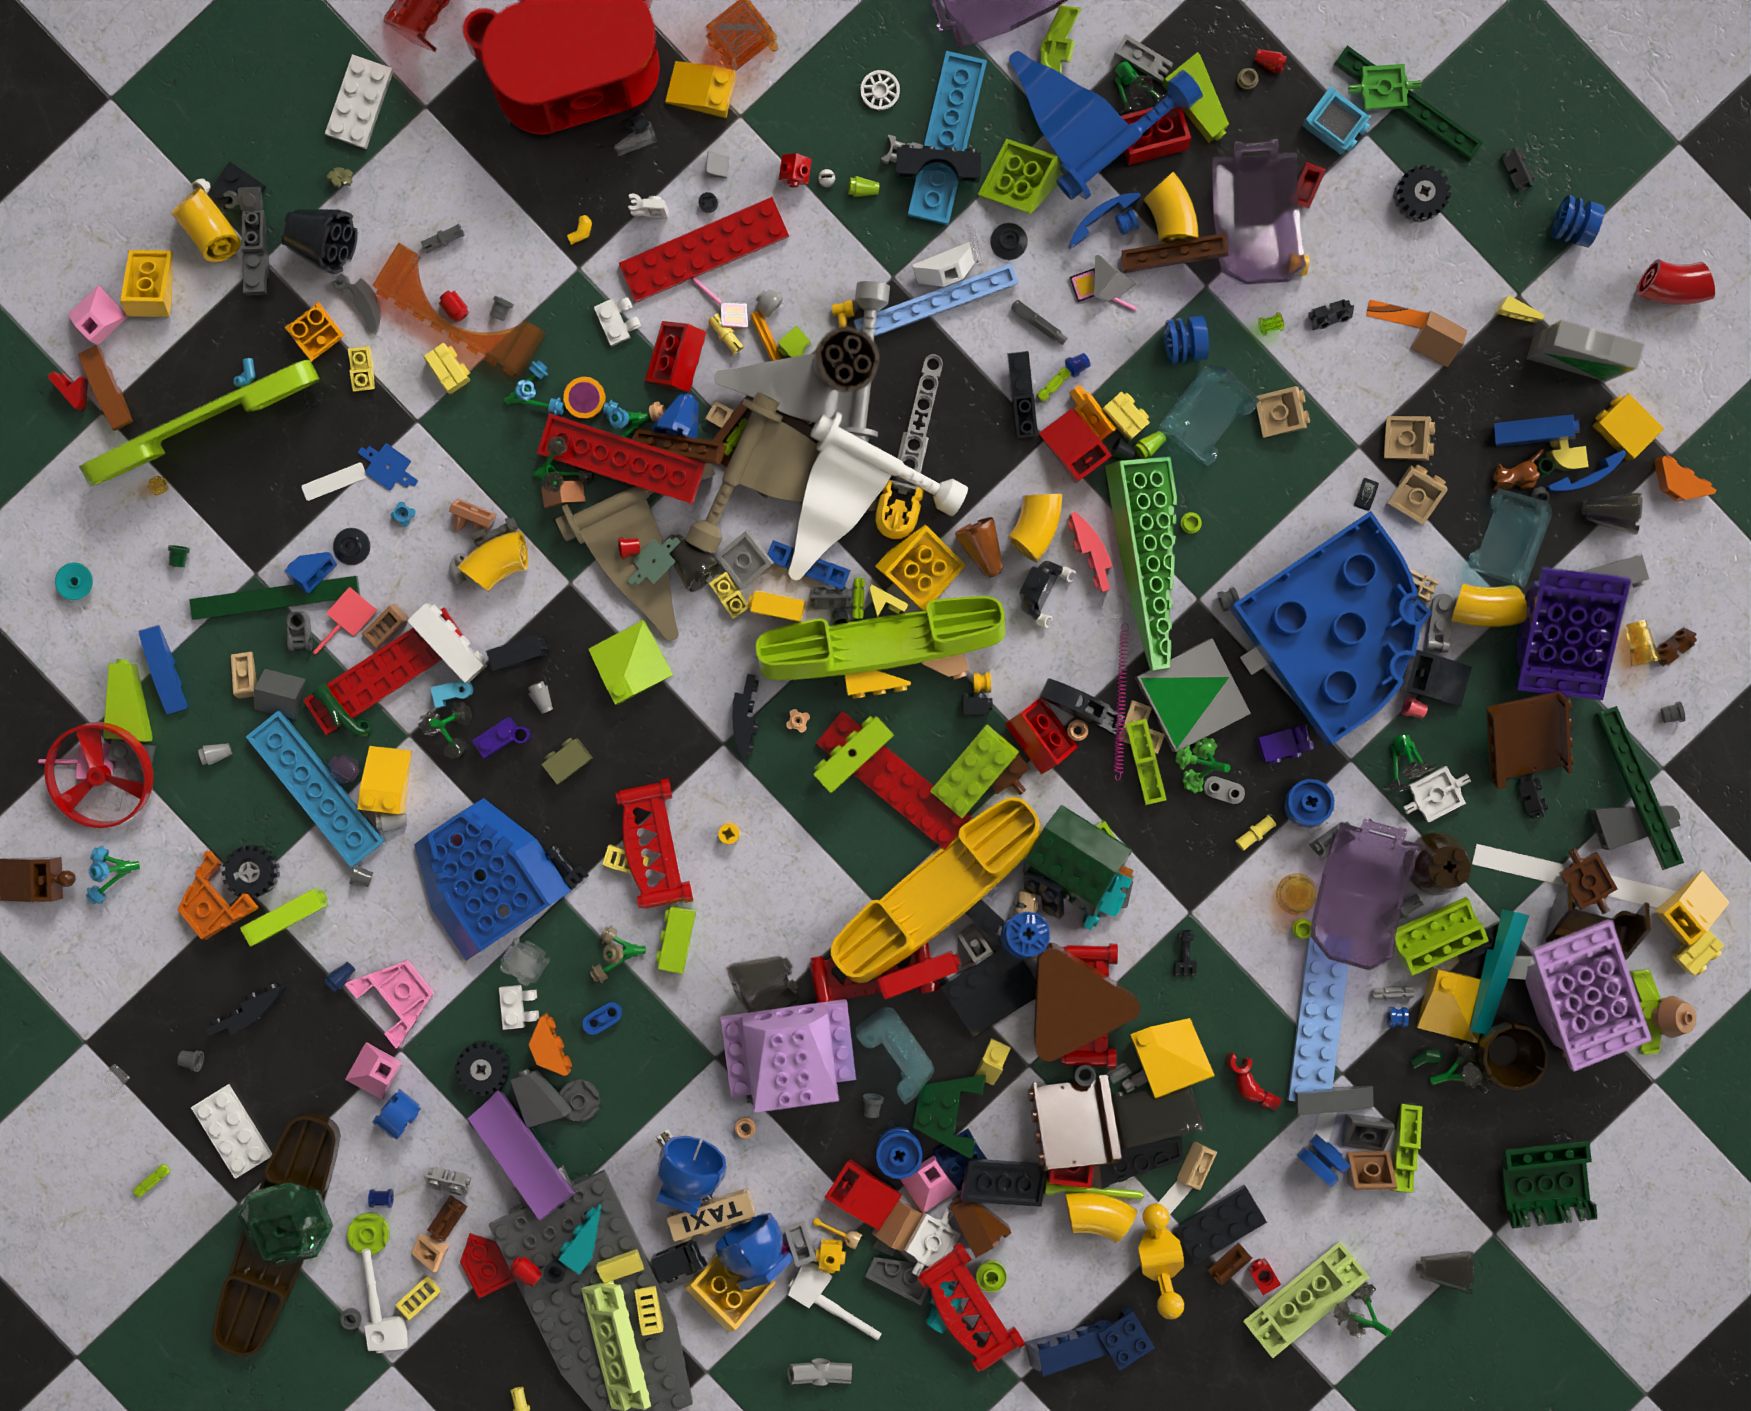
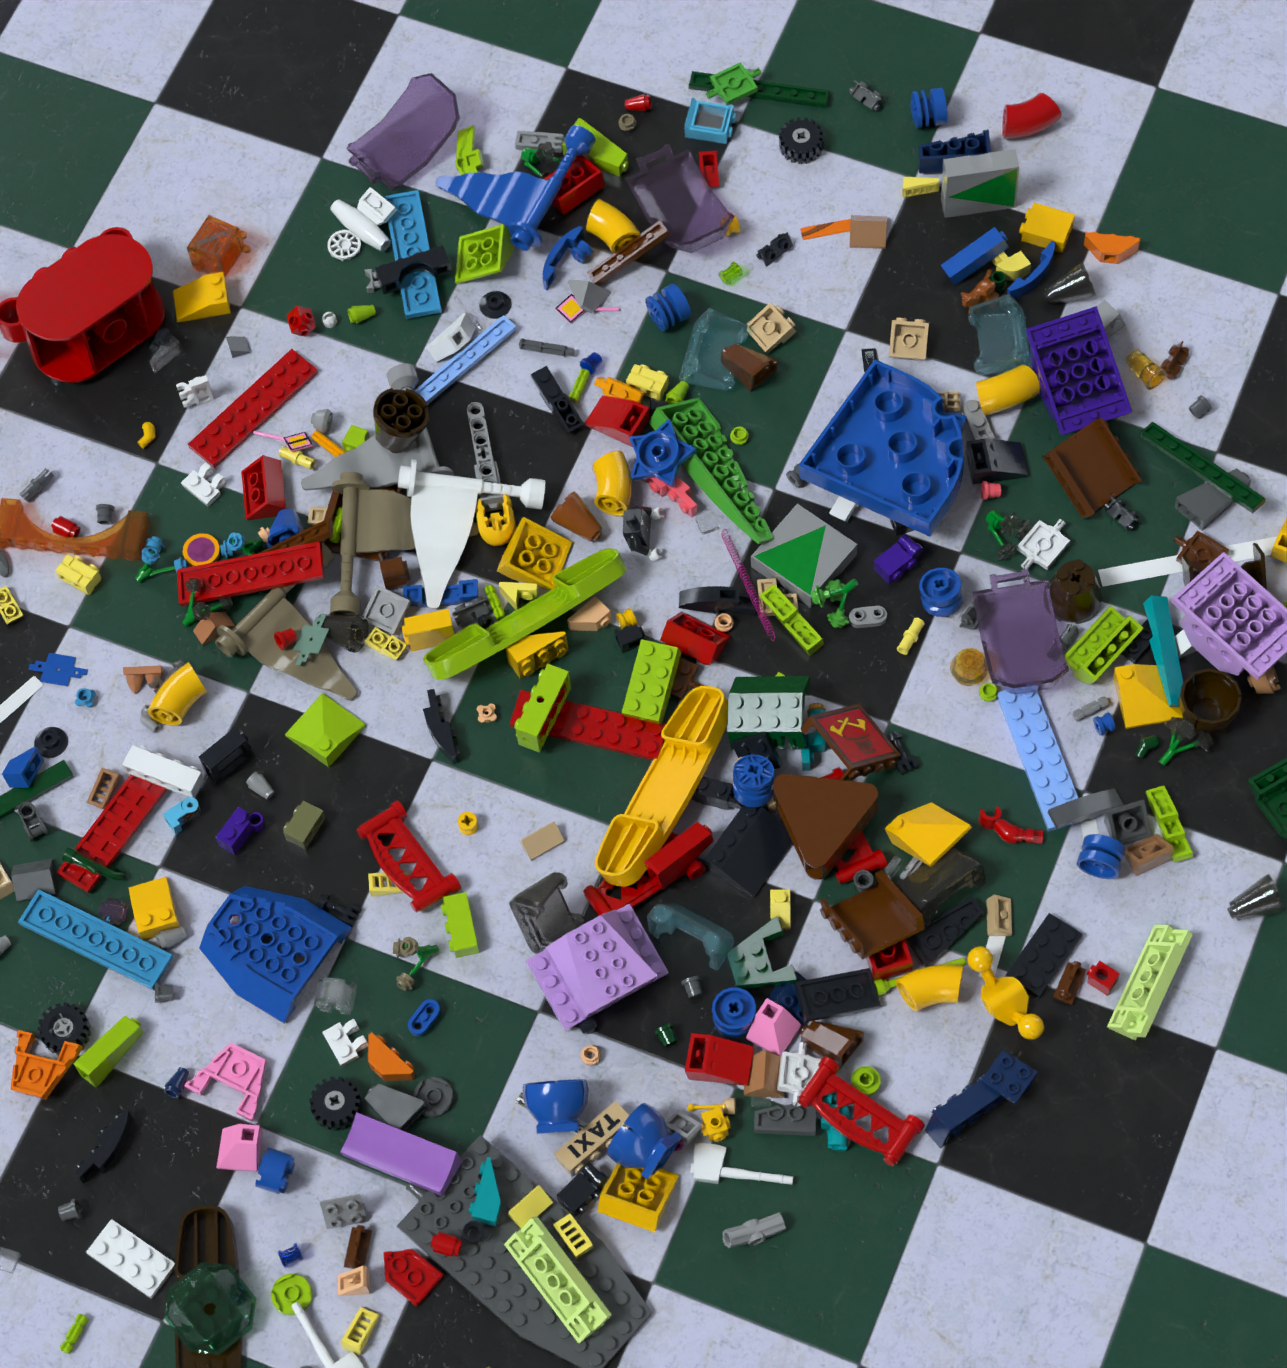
camera: 15 degrees left, 25 degrees down
(350, 612) = (70, 790): coral piece -> none
(433, 724) = (197, 828): clear smoke plant -> none
(708, 195) = (238, 370): black bush -> none
(769, 524) = (395, 573): none -> reddish brown brick
(794, 885) = (542, 841): none -> tan slope
(825, 1141) = (666, 1034): none -> dark green piece
(916, 71) = (364, 220): none -> white plate
(972, 947) = (718, 820): light grey slope -> none
(1089, 504) = (659, 454): none -> blue plate
(1144, 933) = (854, 740): none -> panel
(1237, 447) = (748, 365): none -> reddish brown slope
(1356, 1322) = (1196, 954): clear smoke plant -> none
(1409, 438) = (881, 304): tan plate -> none
(1578, 293) = (932, 154): none -> dark blue wedge

